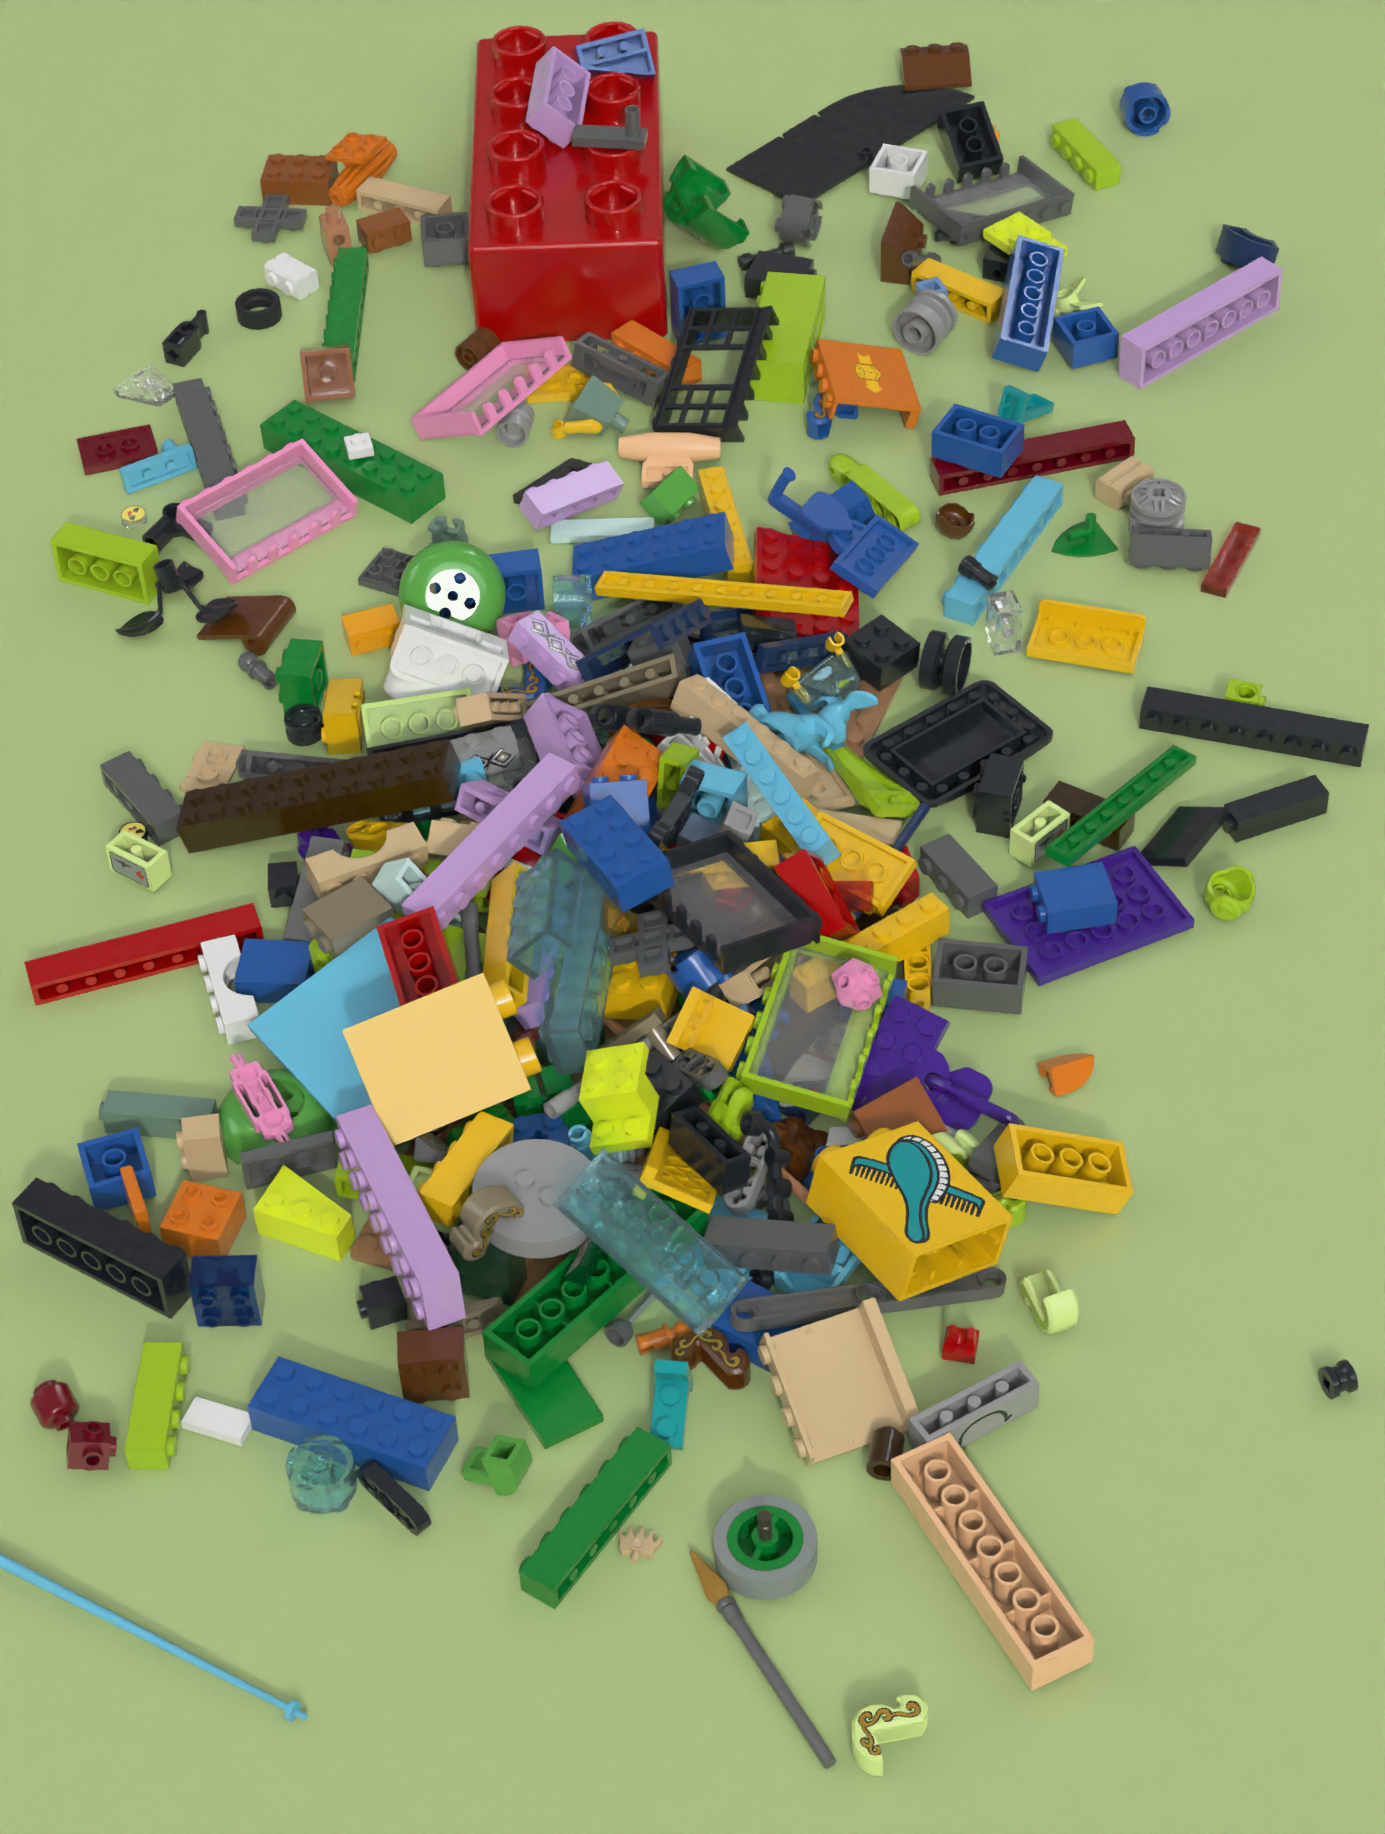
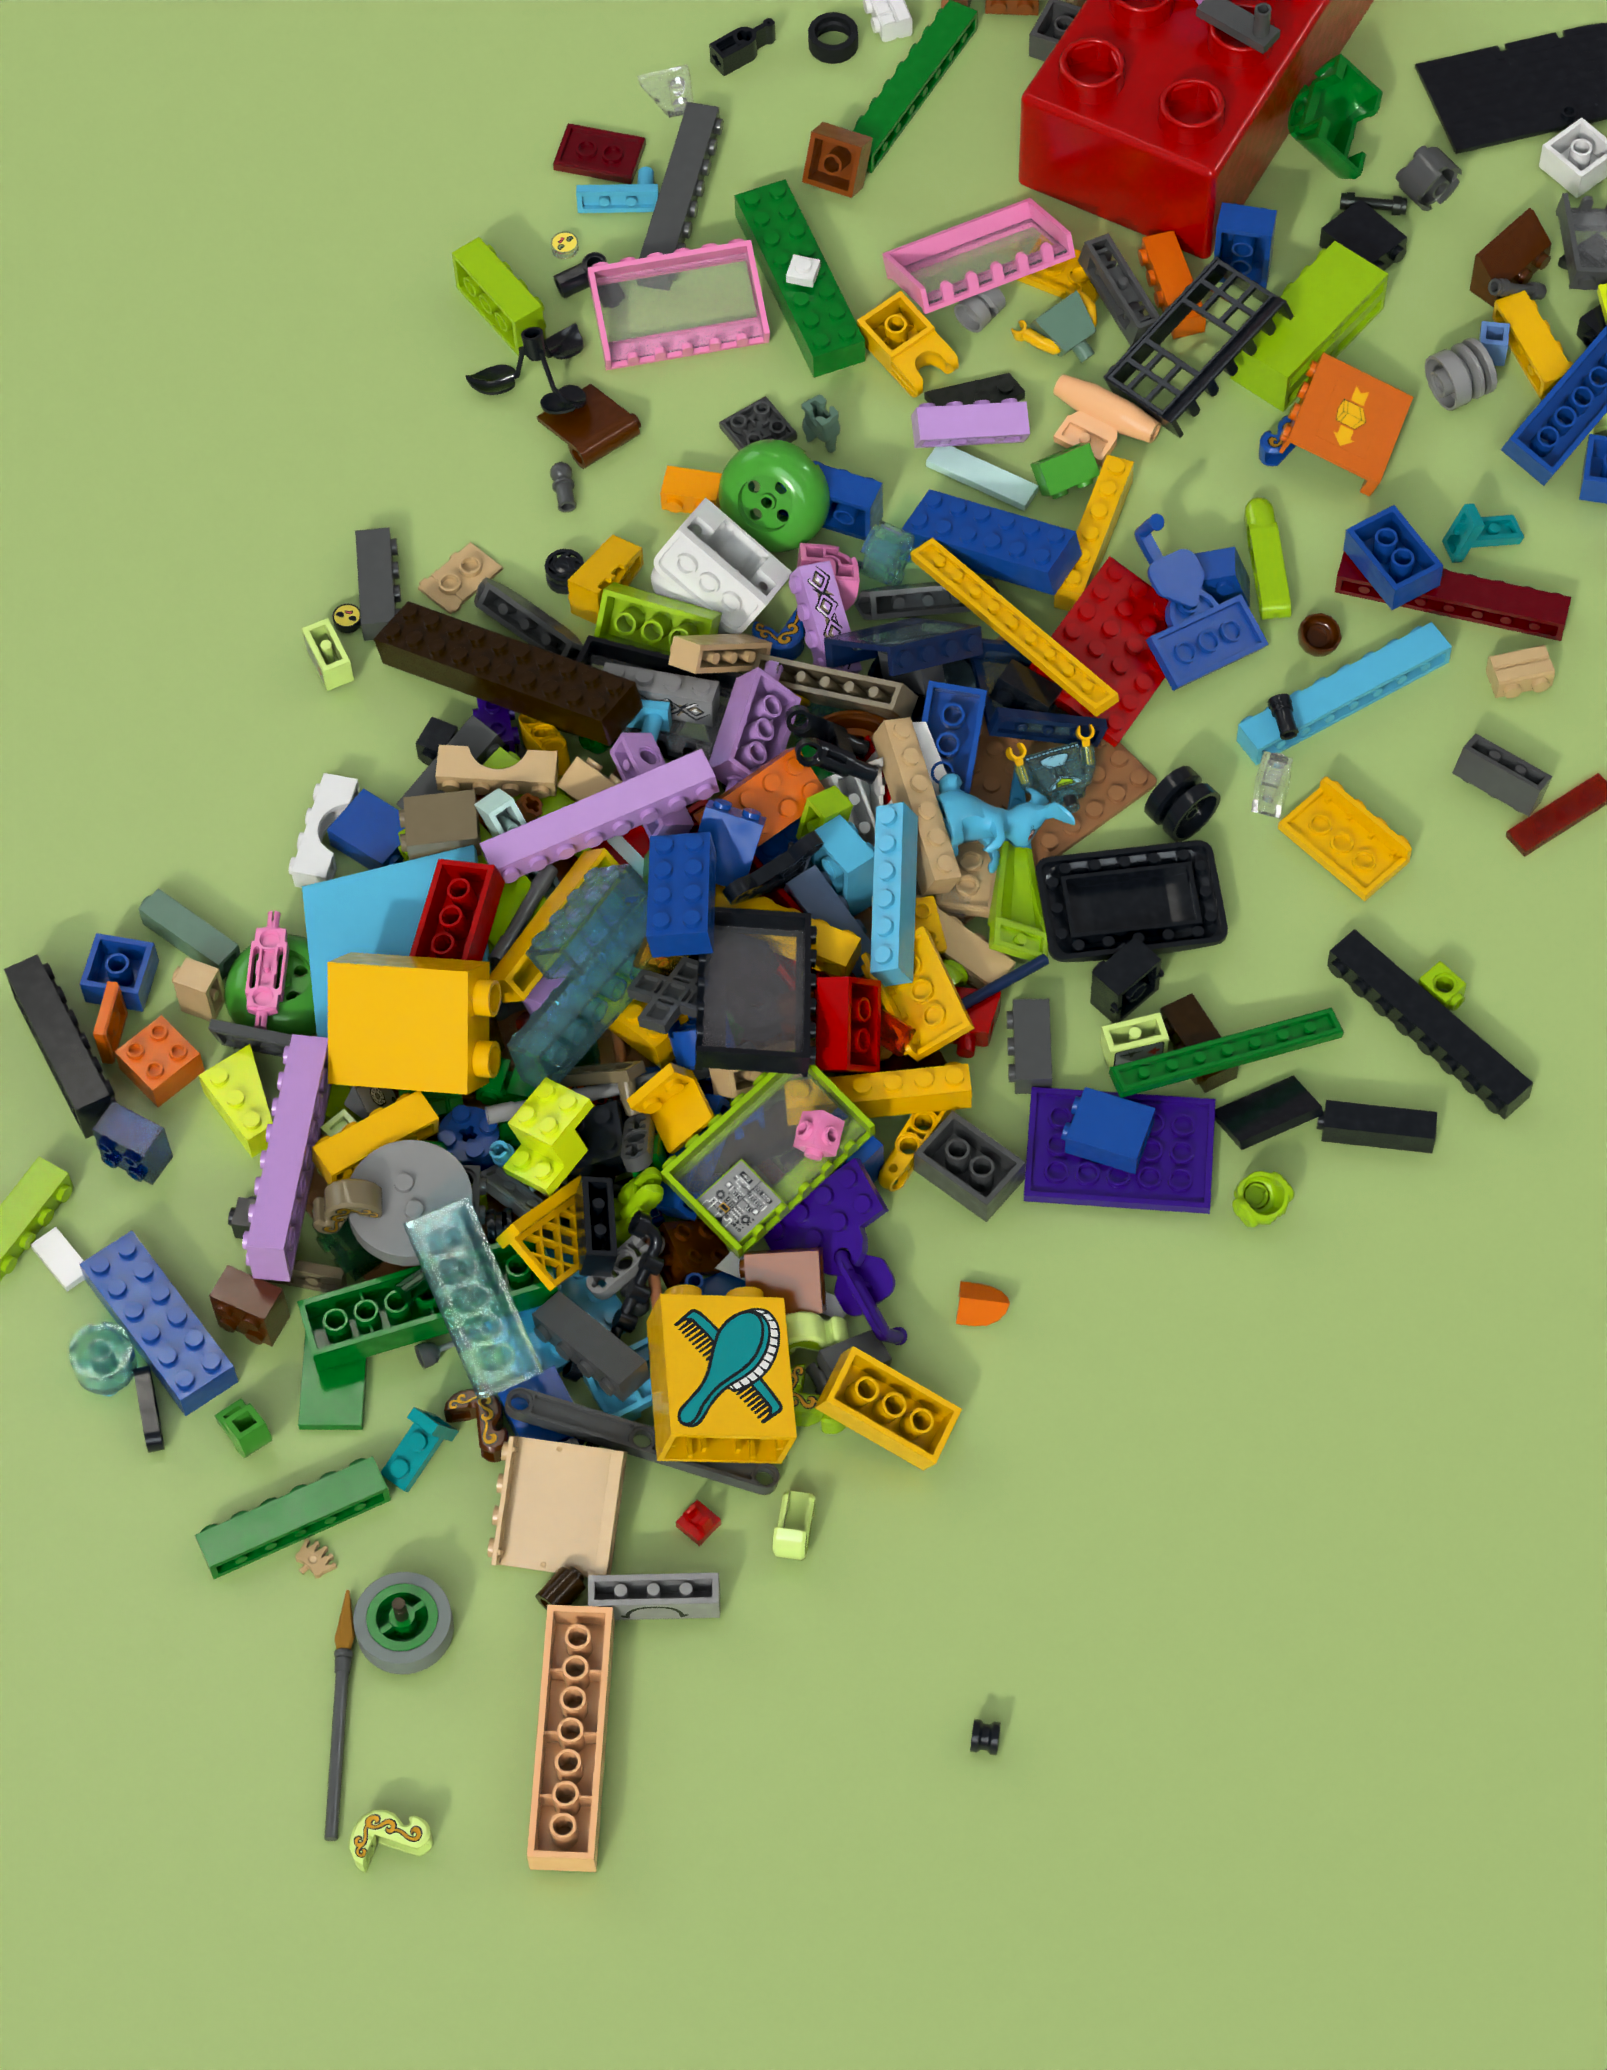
camera: 30 degrees right, 15 degrees up
(136, 954) = (274, 754): red brick -> none
(302, 674) = (589, 519): green brick -> none
(476, 347) = (1003, 193): reddish brown wheel -> none
(477, 467) = (905, 342): none -> yellow brick
(660, 1337) = (450, 1378): orange pin -> none
(739, 821) = (837, 904): light grey brick -> none
(823, 1068) = (740, 1201): none -> light grey tile
(882, 652) = (1128, 761): black brick -> none
(1084, 540) = (1436, 718): green shield -> none
(1157, 504) = (1521, 723): light grey wheel -> none

